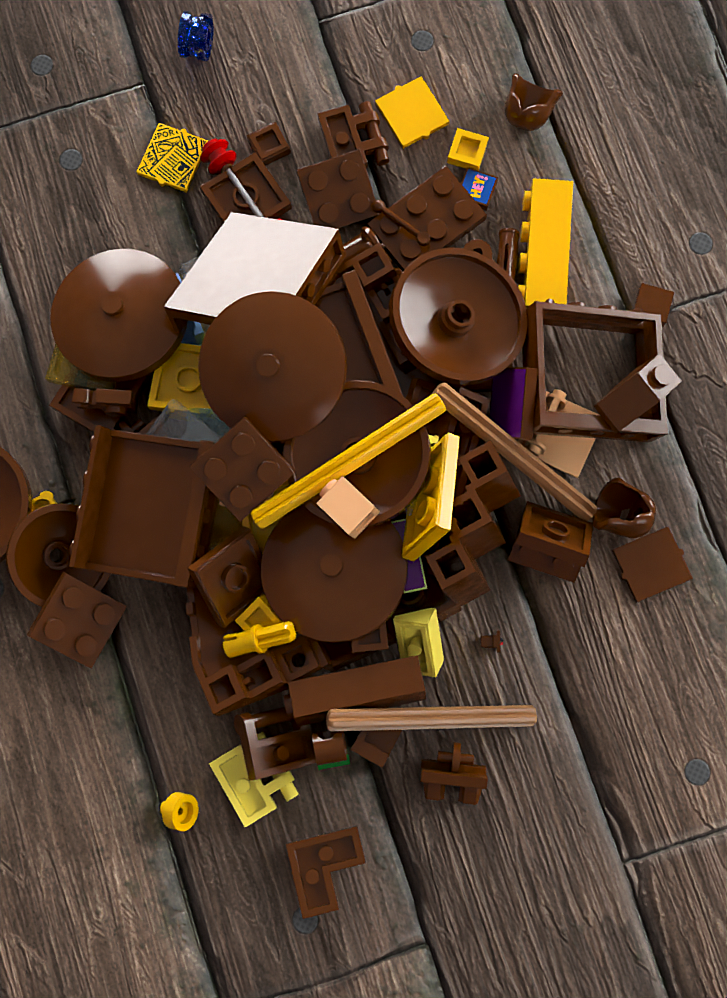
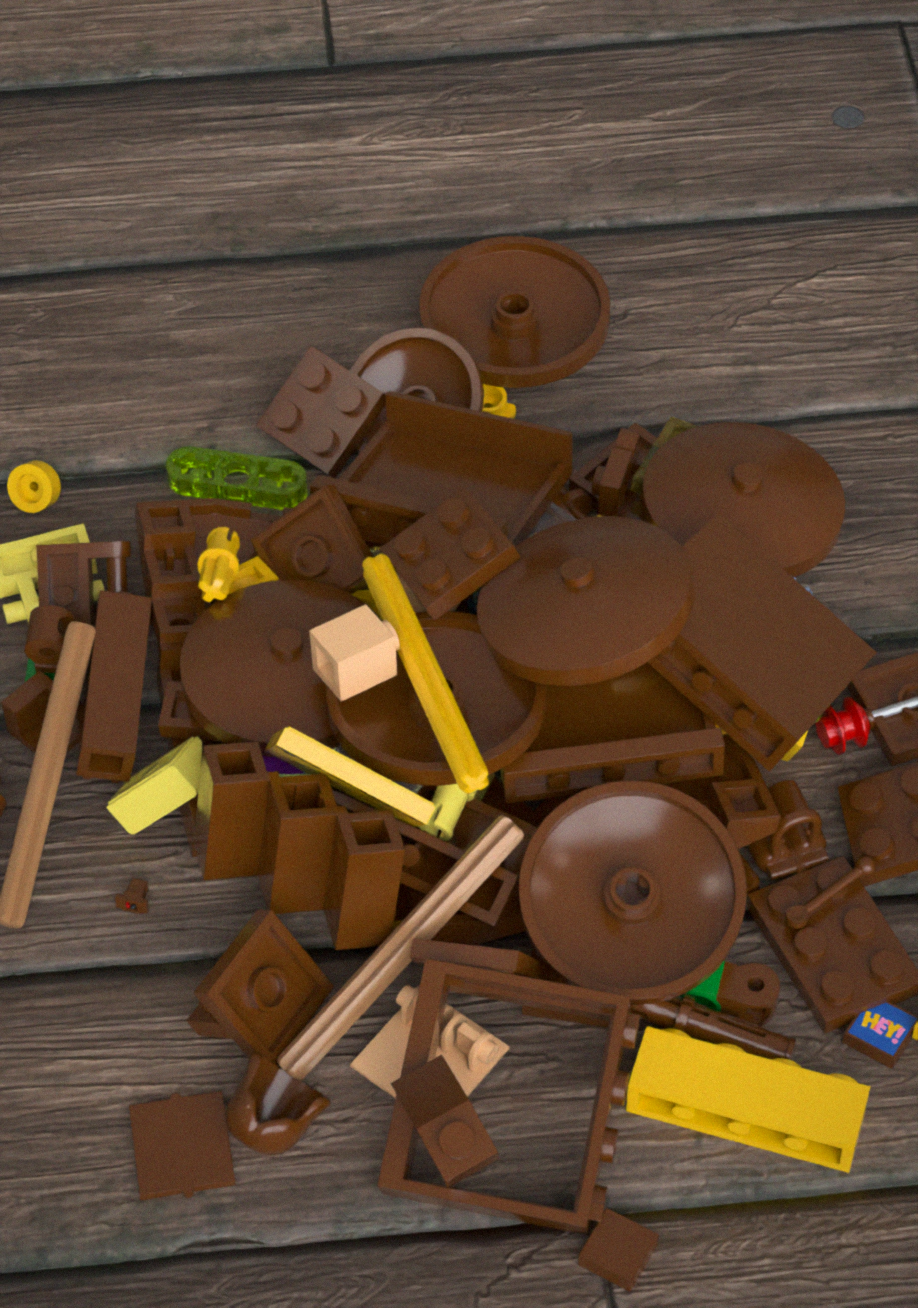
camera: 100 degrees right, 25 degrees down
(129, 696) = (224, 462): none -> clear neon green beam

